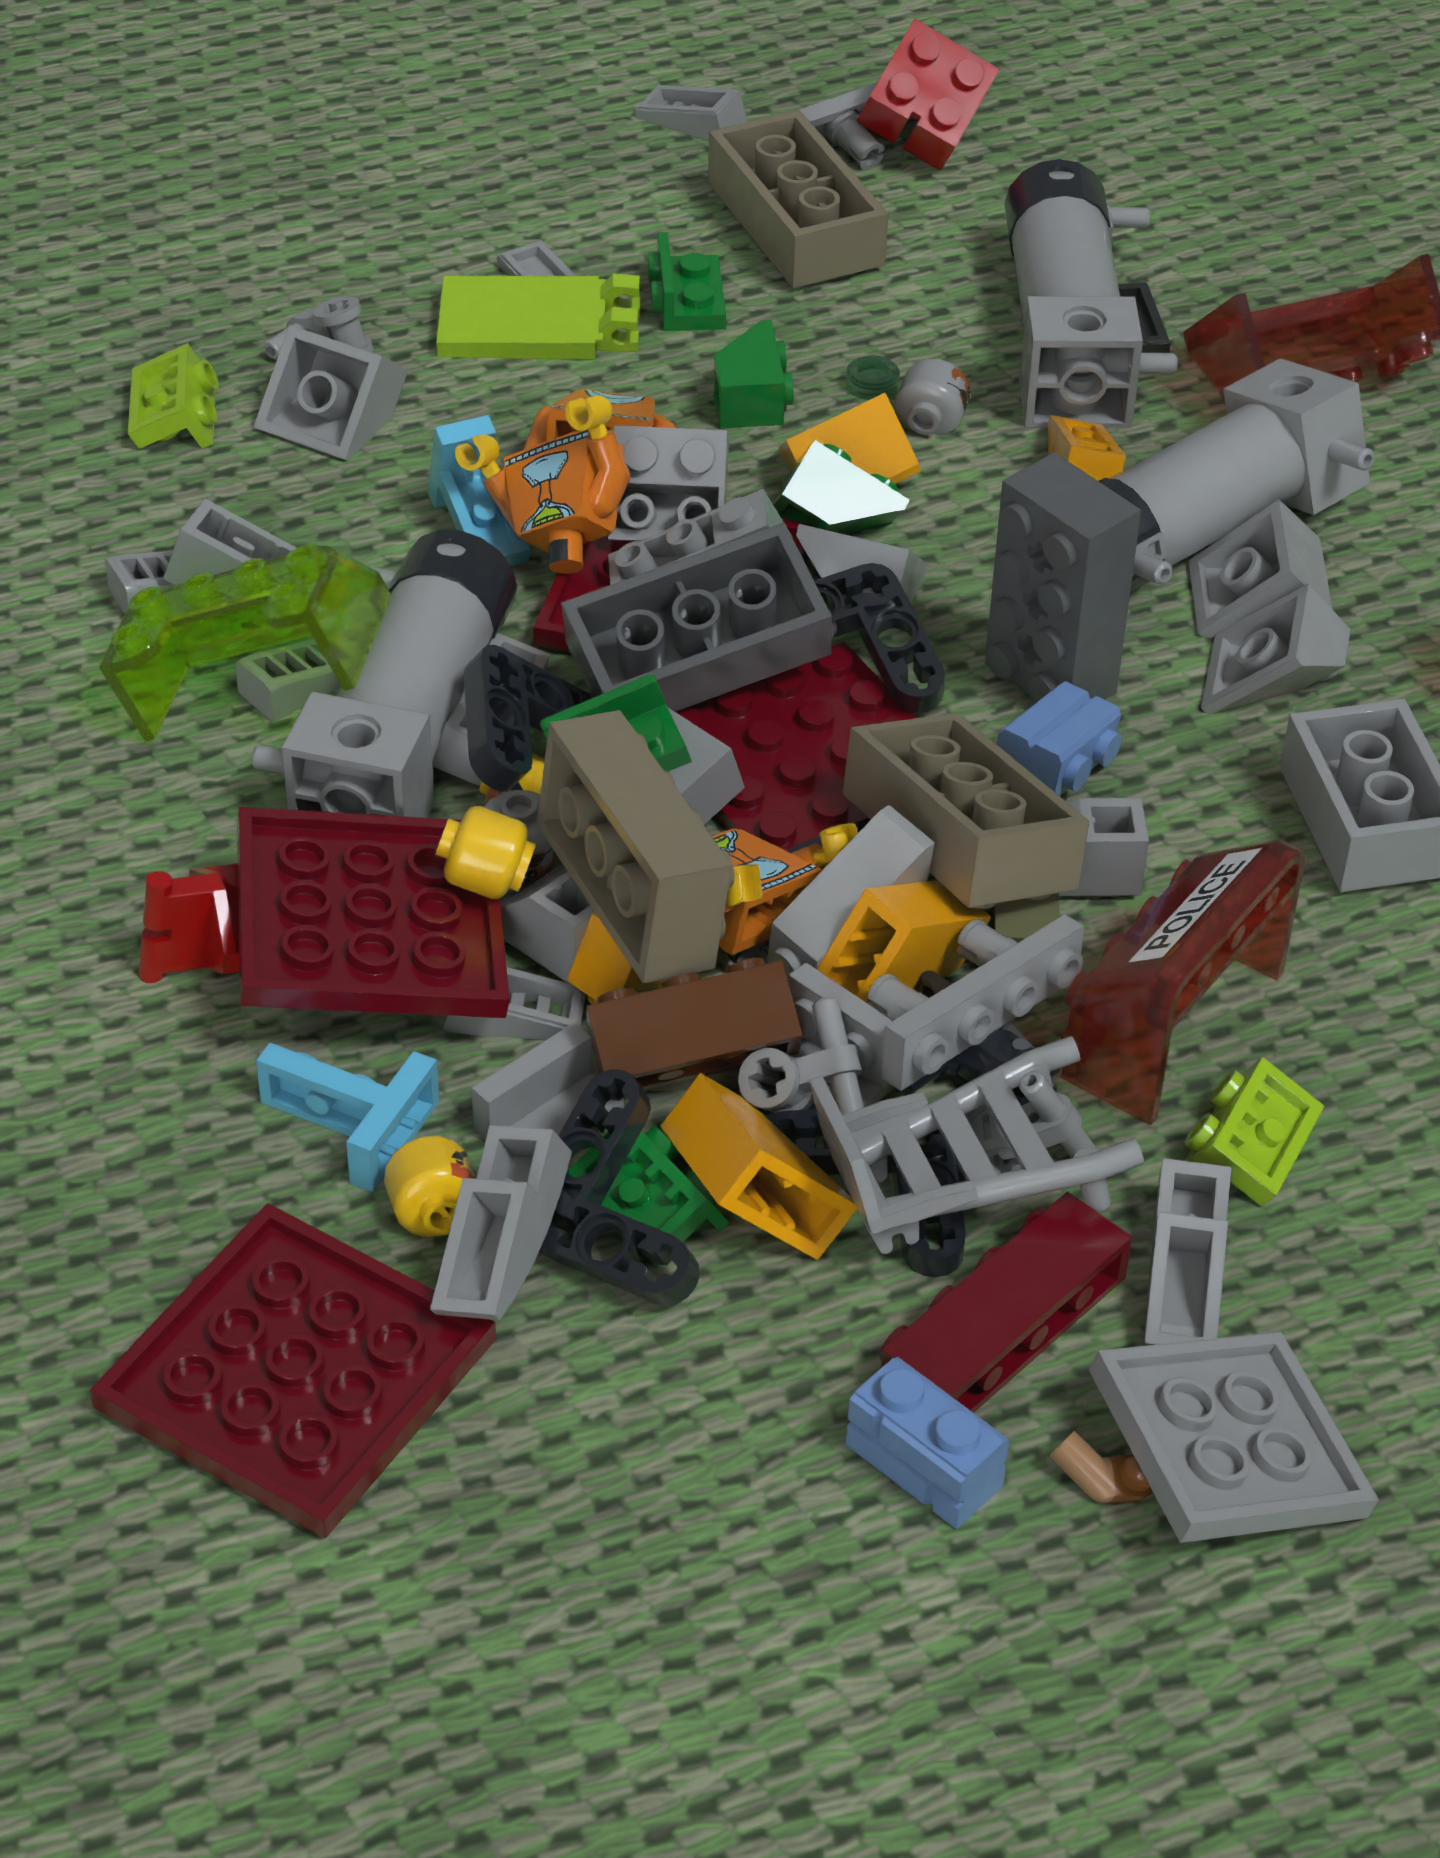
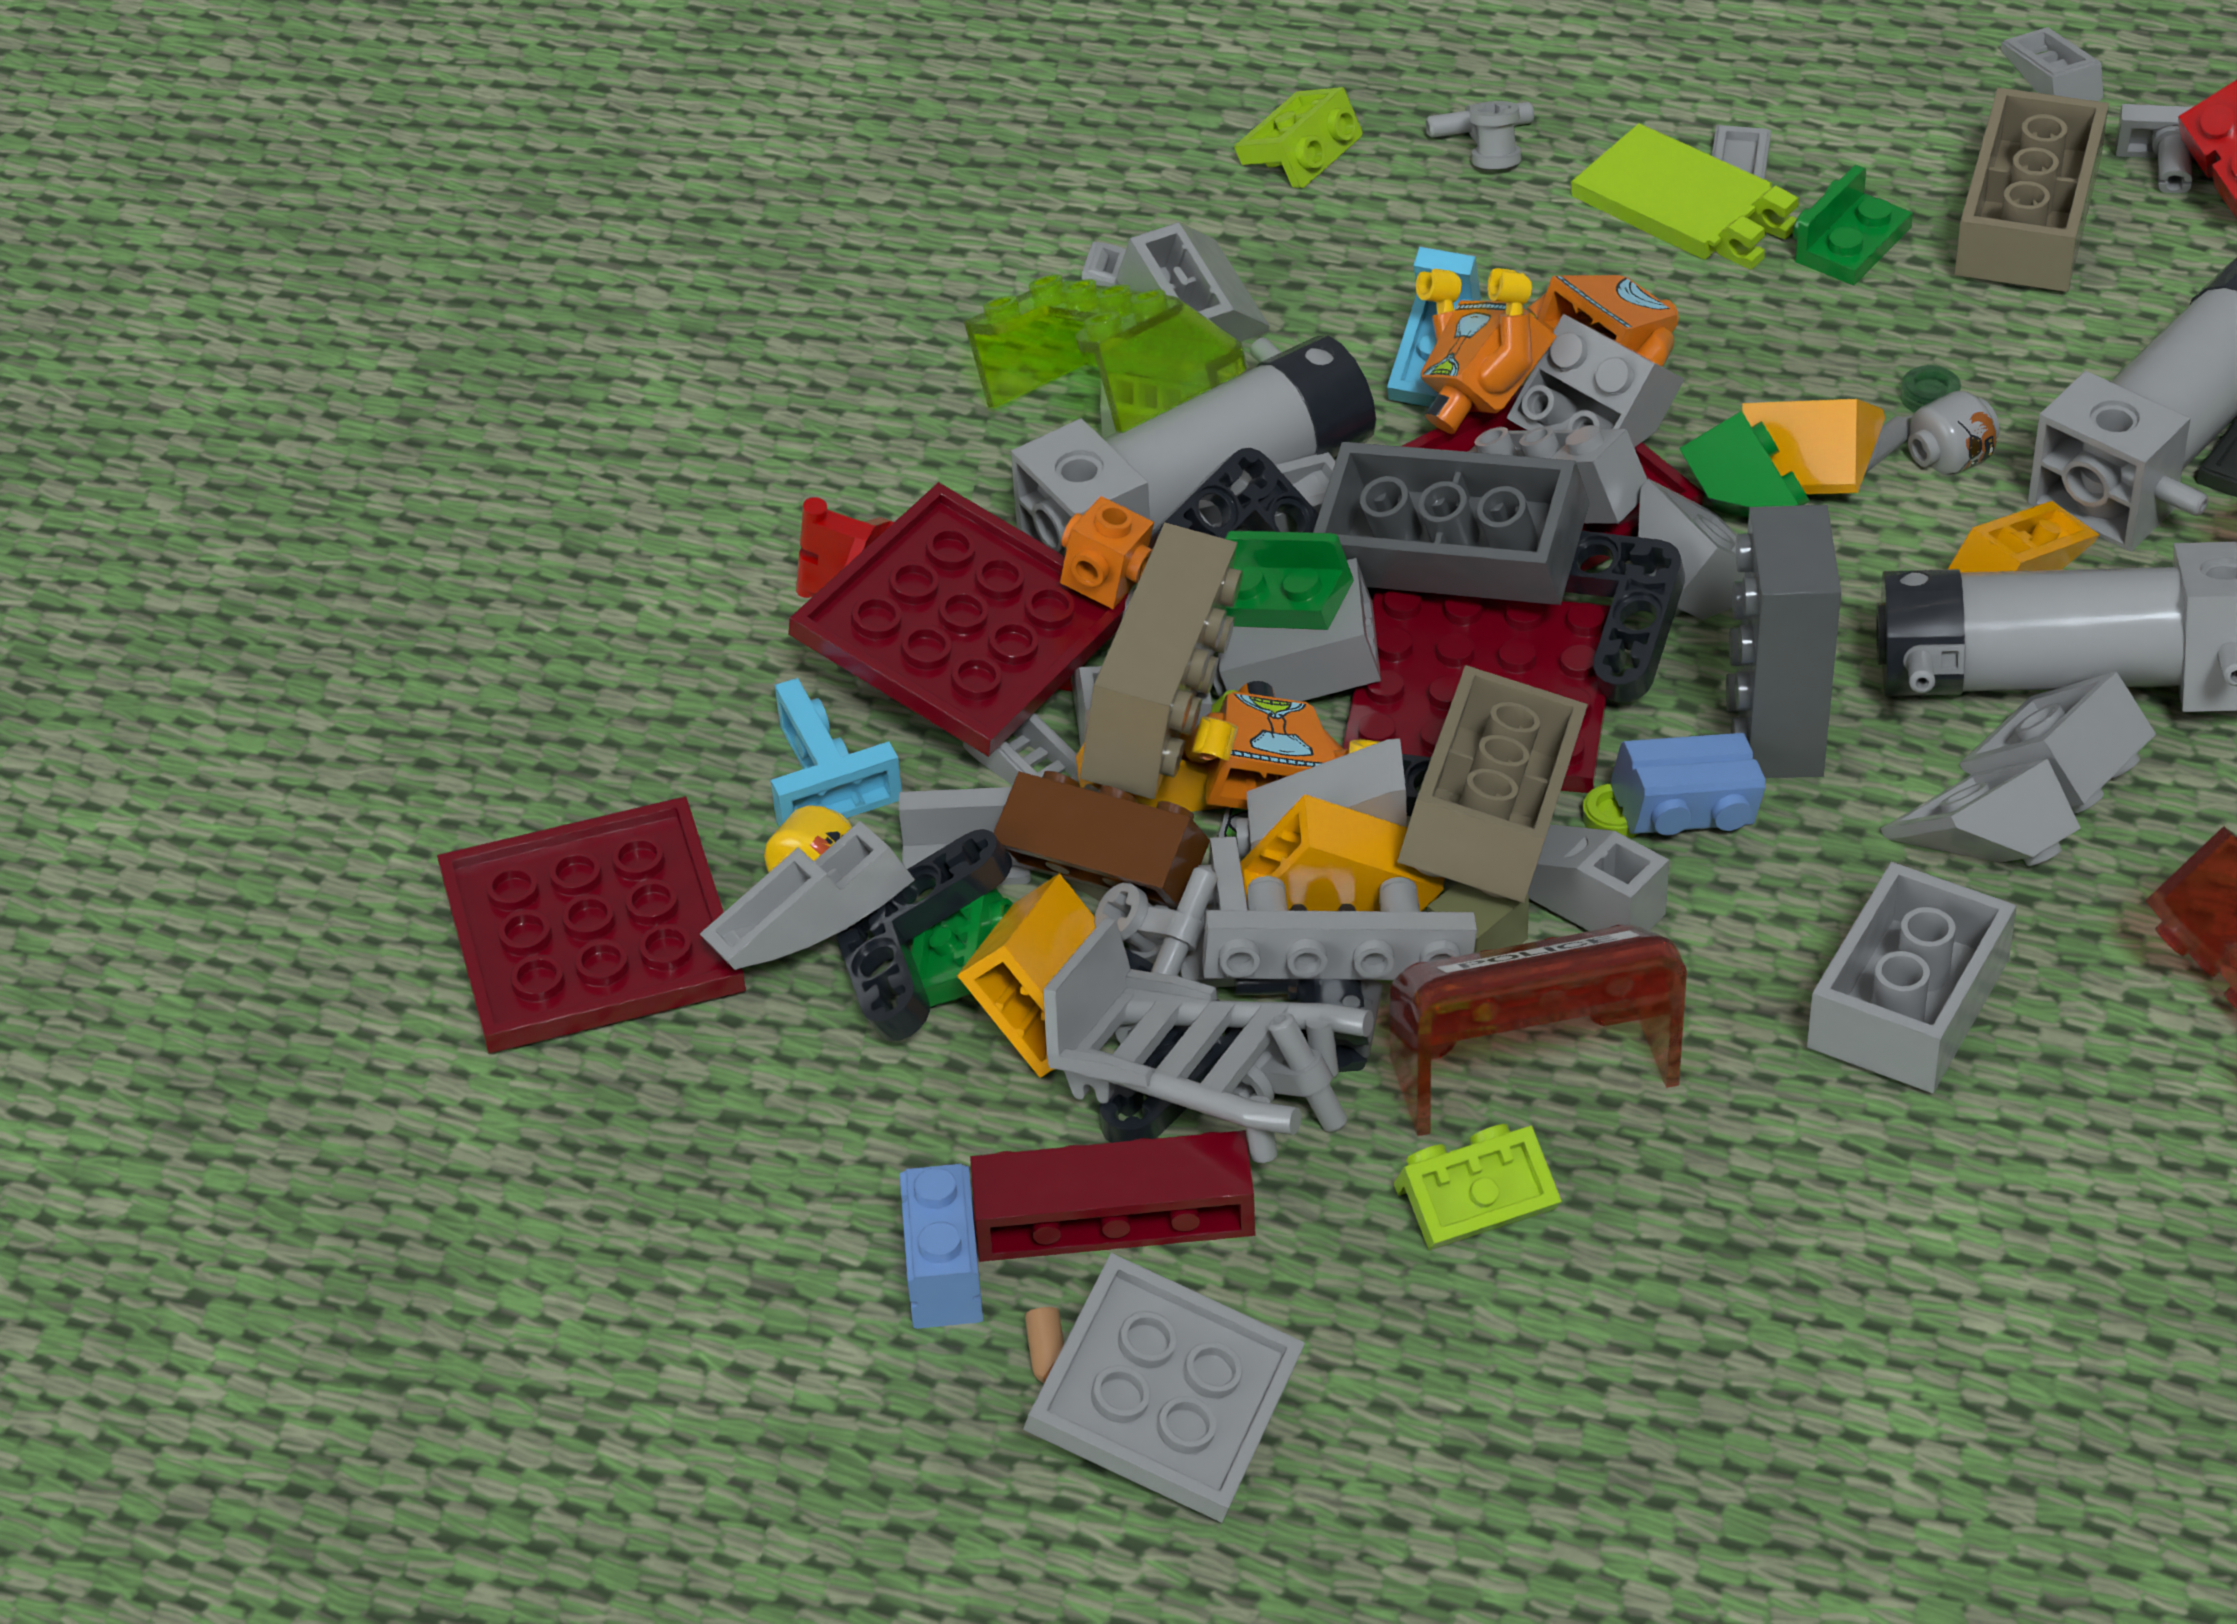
camera: 45 degrees right, 0 degrees up
(328, 394) = (1427, 184): light grey slope -> none
(451, 780) = (1105, 551): none -> orange brick
(485, 852) = (1076, 613): yellow head -> none
(752, 380) = (1803, 337): green slope -> none
(1187, 1252) = (1306, 1242): light grey slope -> none

